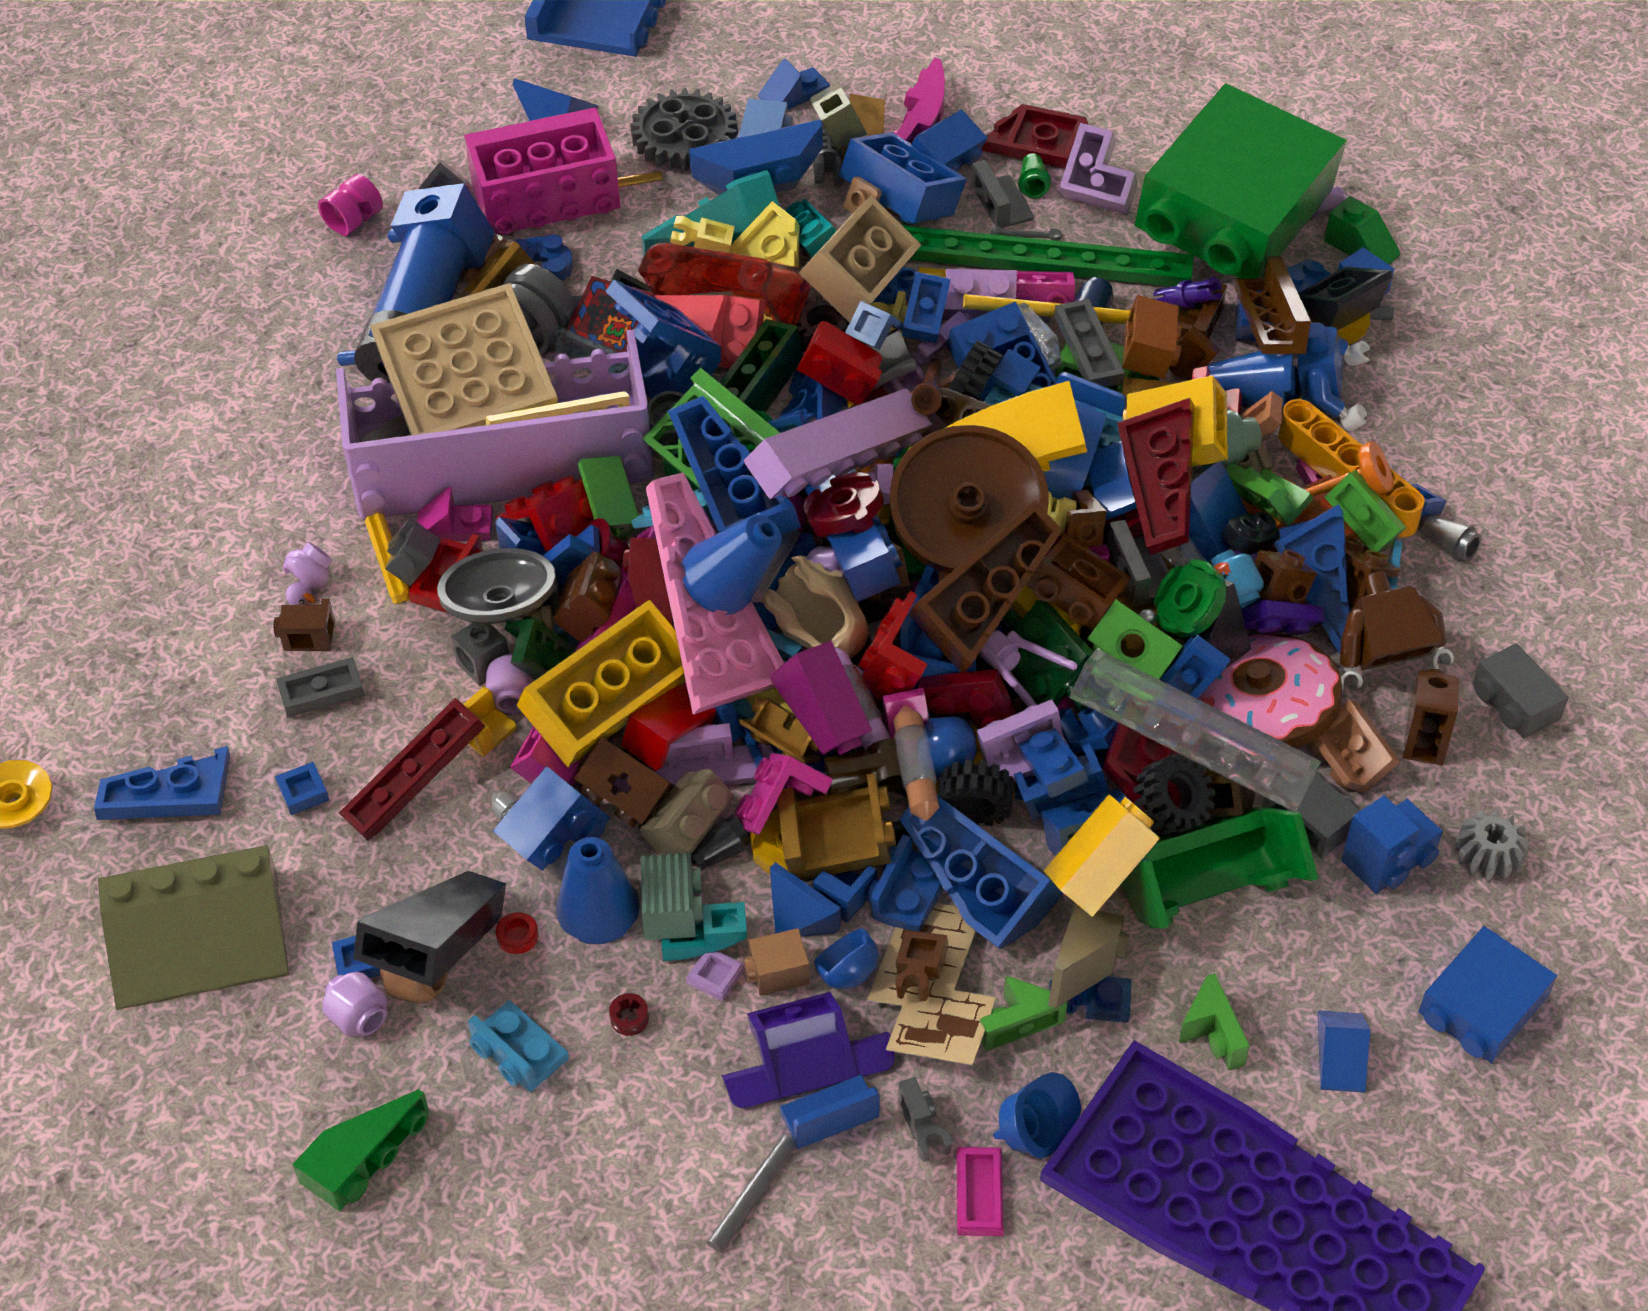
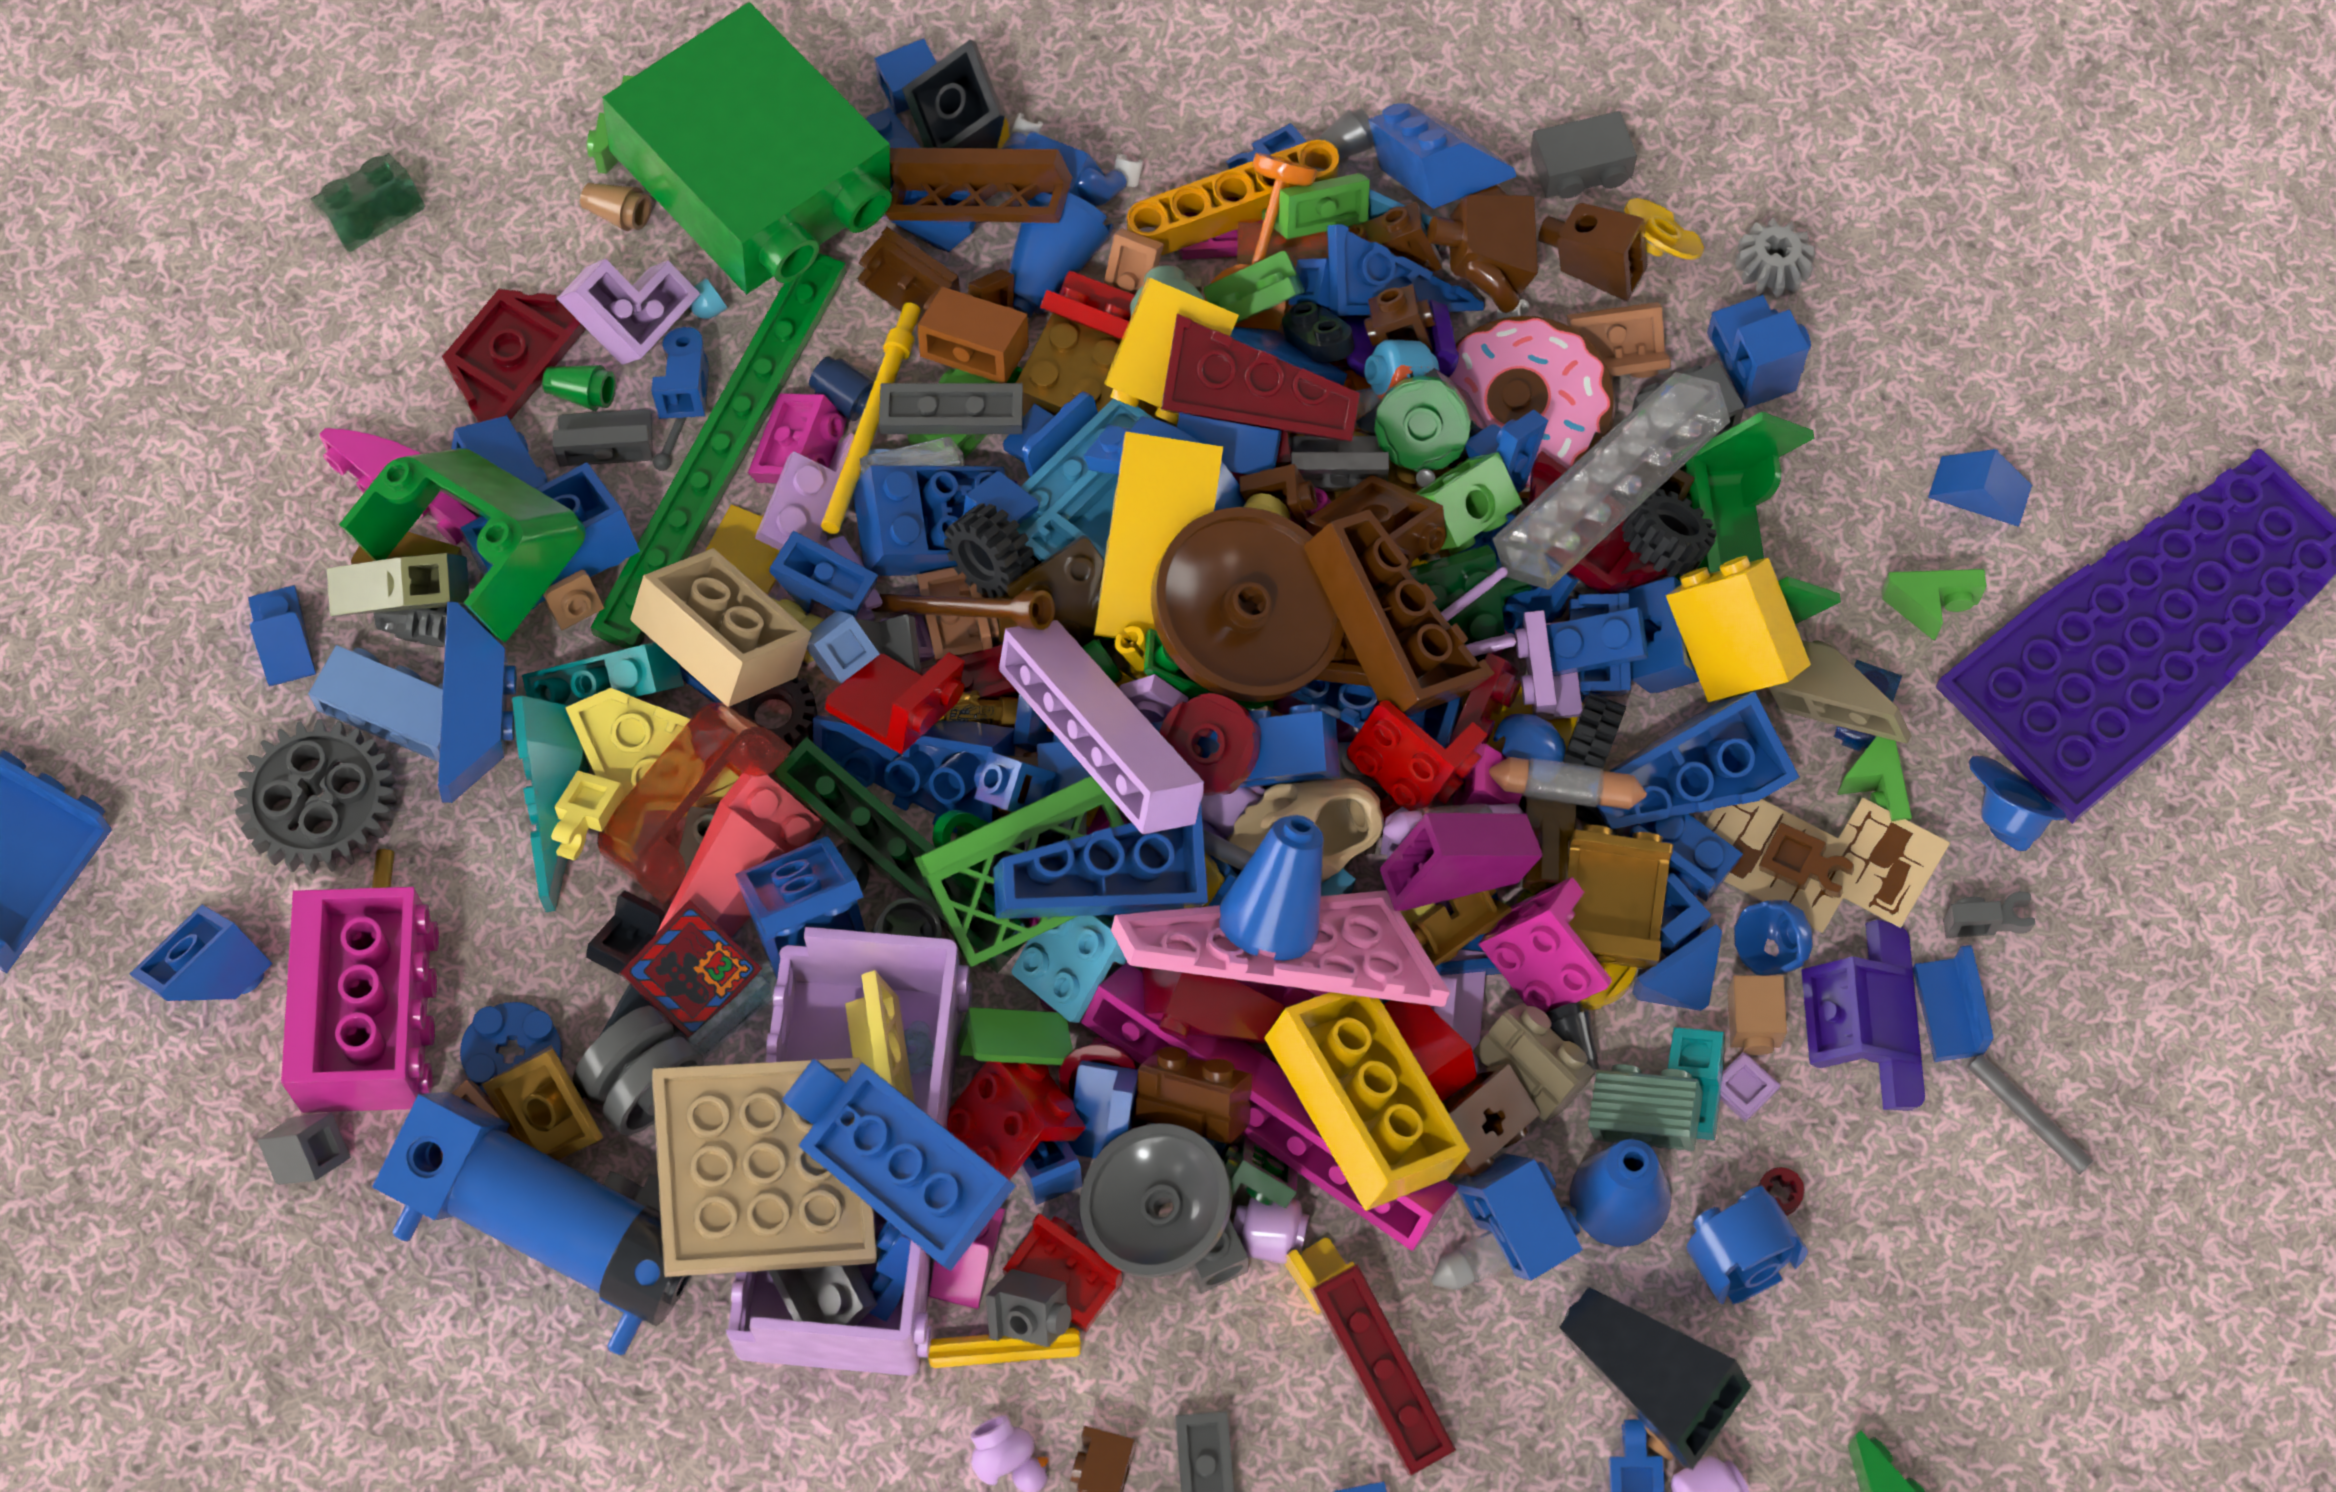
camera: 75 degrees left, 15 degrees up
(350, 204) = (307, 1285): dark pink wheel -> none
(471, 406) = (898, 1159): none -> blue hinge
(517, 933) = (1639, 1291): red tile -> none
(517, 1045) = (1795, 1322): dark azure bracket -> none
(564, 982) = (1745, 1246): none -> blue brick
(881, 119) = (524, 540): none -> green windscreen
(979, 1191) = (2074, 885): dark pink tile -> none
(1062, 218) = (685, 386): none -> blue leg
(1123, 48) = (368, 201): none -> clear green bracket
(1125, 221) = (708, 303): none -> medium azure hinge
(1190, 293) = (881, 275): dark purple pin -> none
(1358, 226) = (839, 49): green slope -> none
(1455, 576) = (1433, 156): none -> blue slope
(1475, 756) = (1663, 232): none -> yellow dish
(1486, 994) = (1957, 332): blue brick -> none

